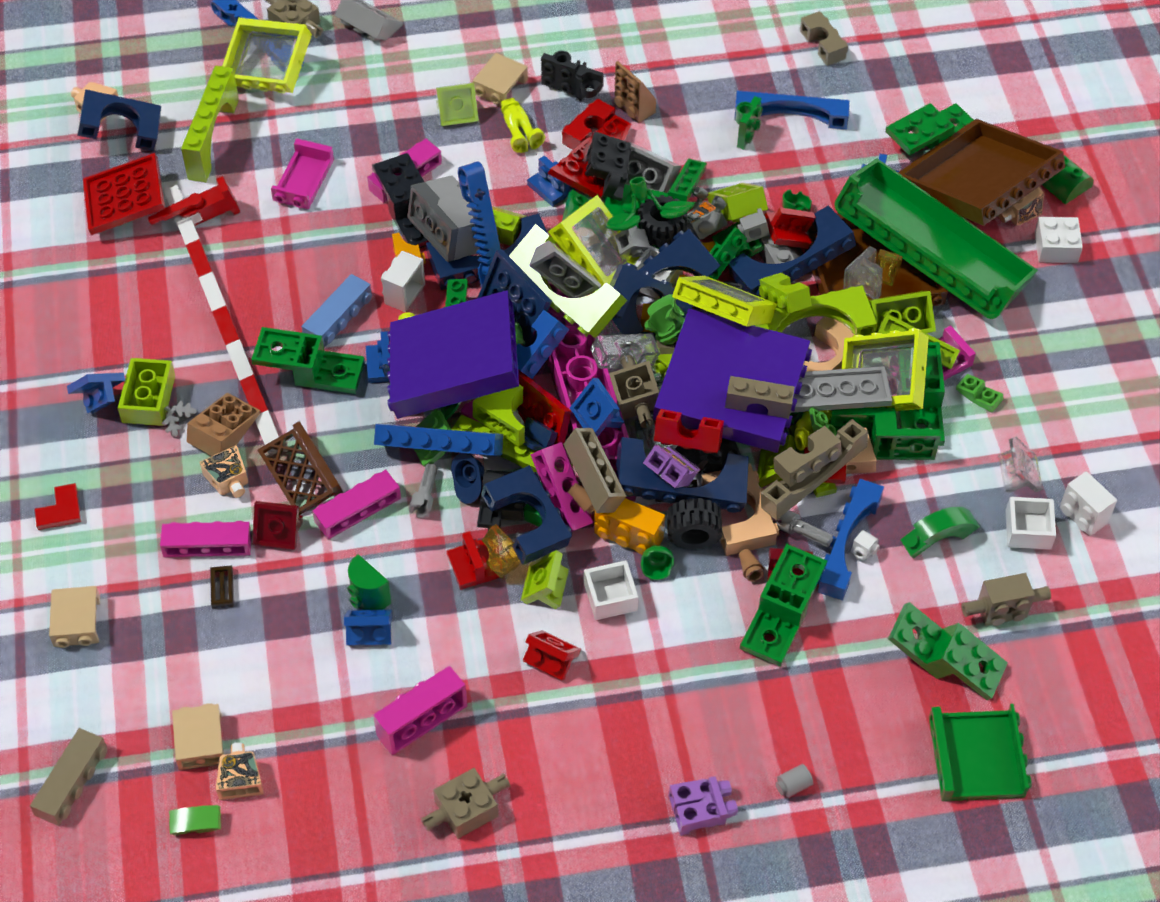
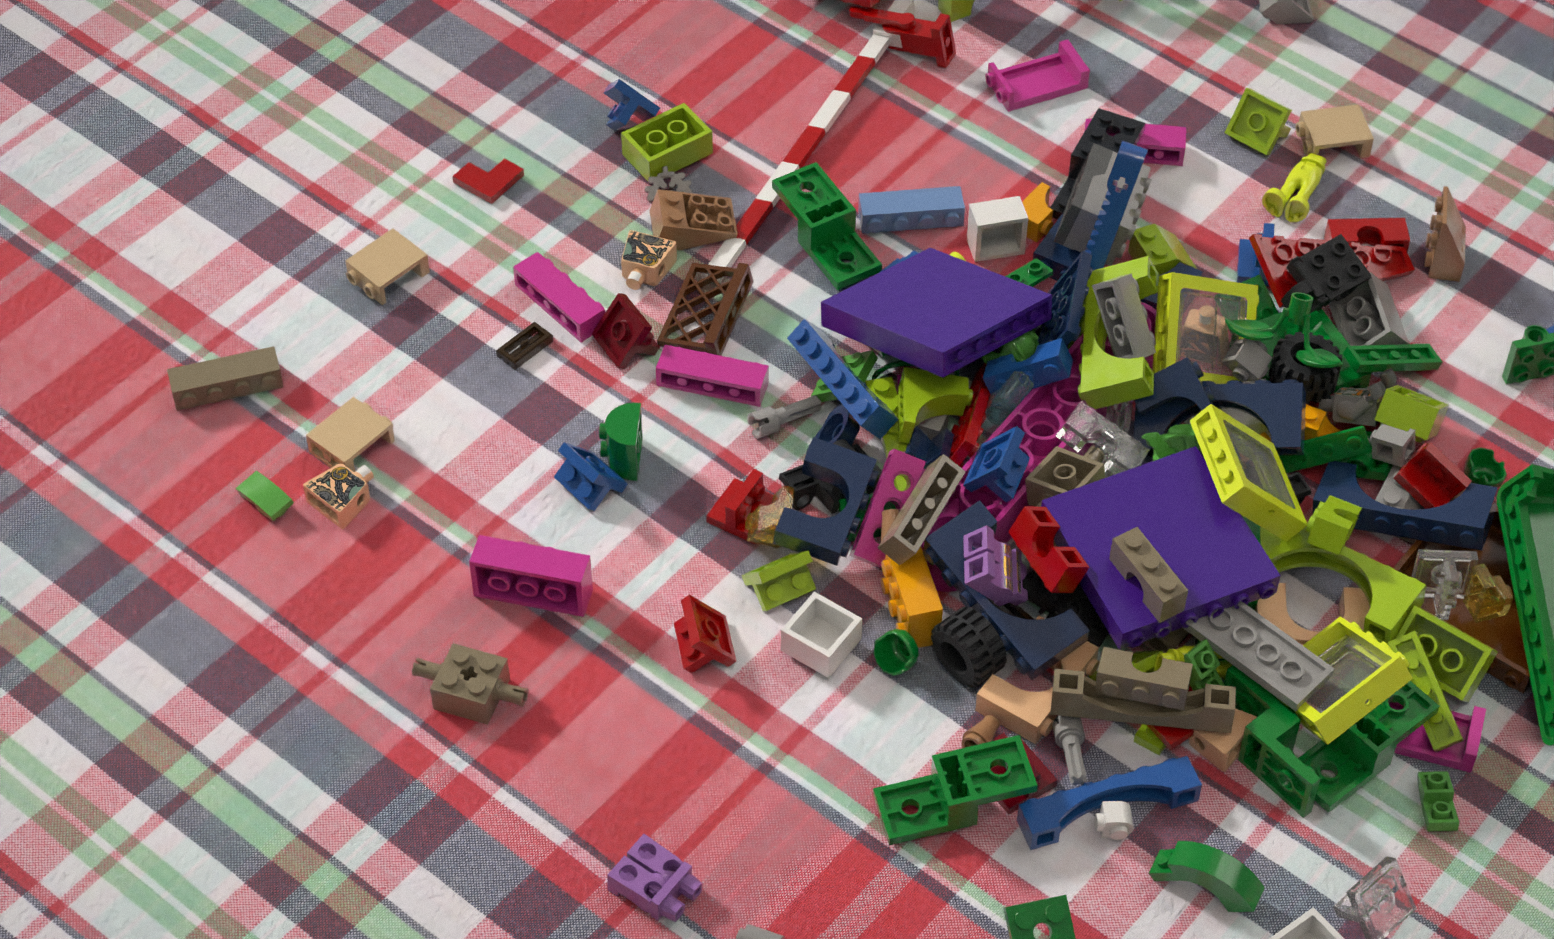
camera: 50 degrees right, 5 degrees down
(545, 373) = (1008, 397): none -> clear light blue piece
(570, 77) = (1403, 175): black plate -> none

